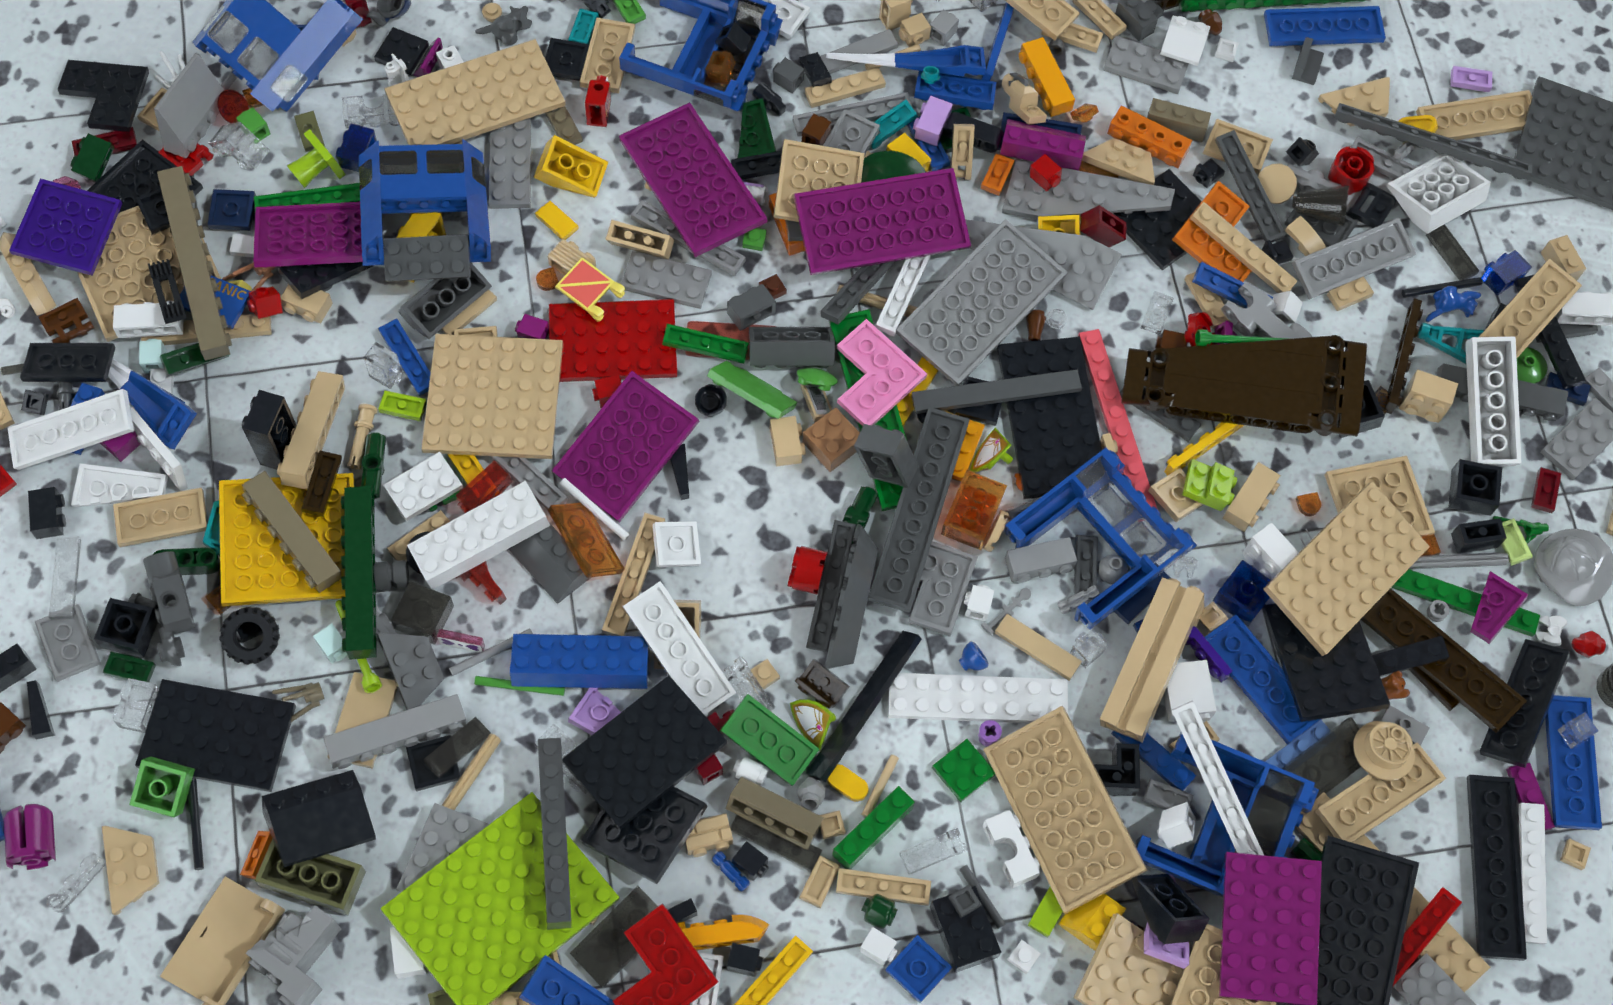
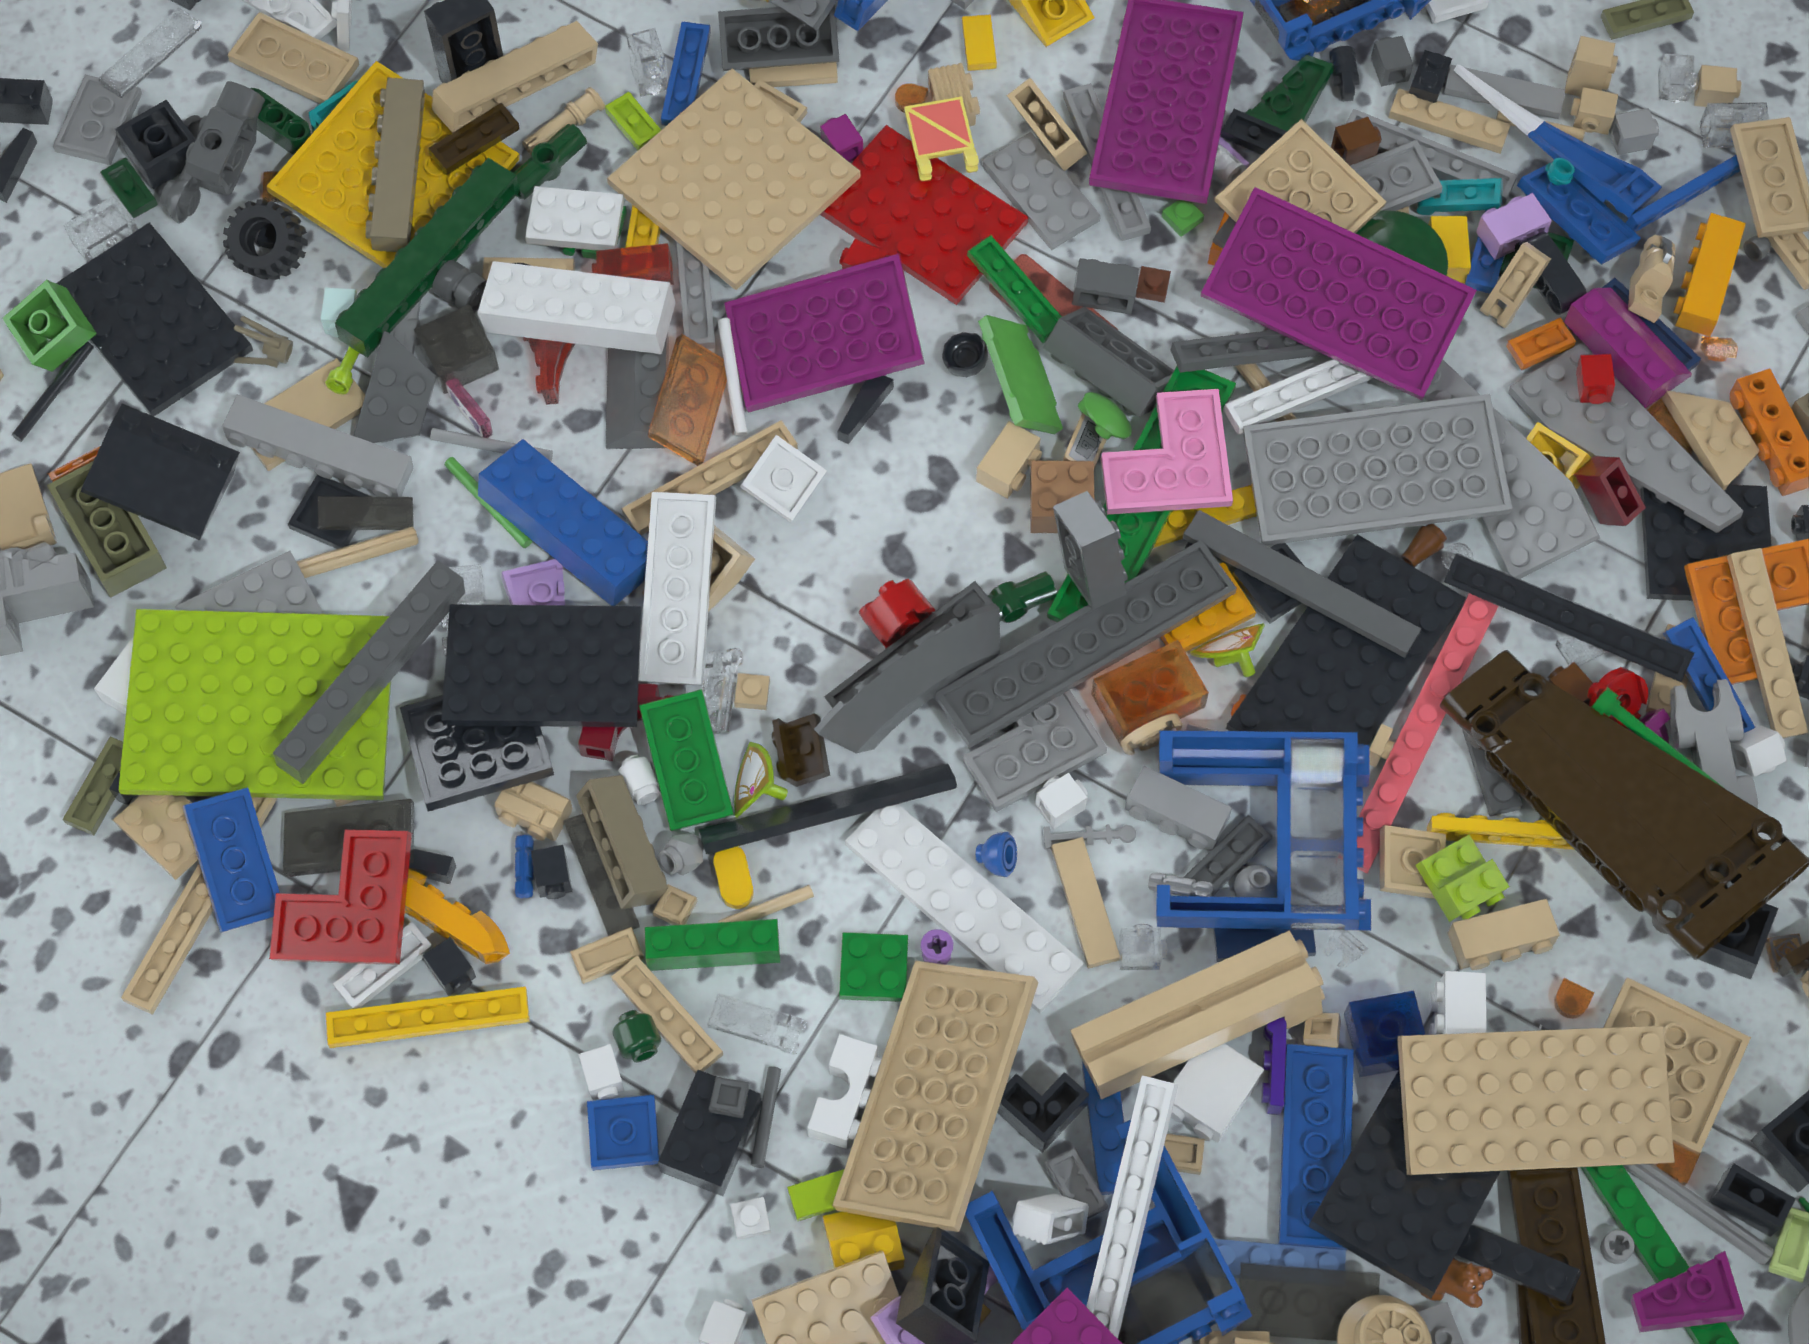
camera: 45 degrees right, 0 degrees up
(1140, 308) = (1569, 617): none -> black tile

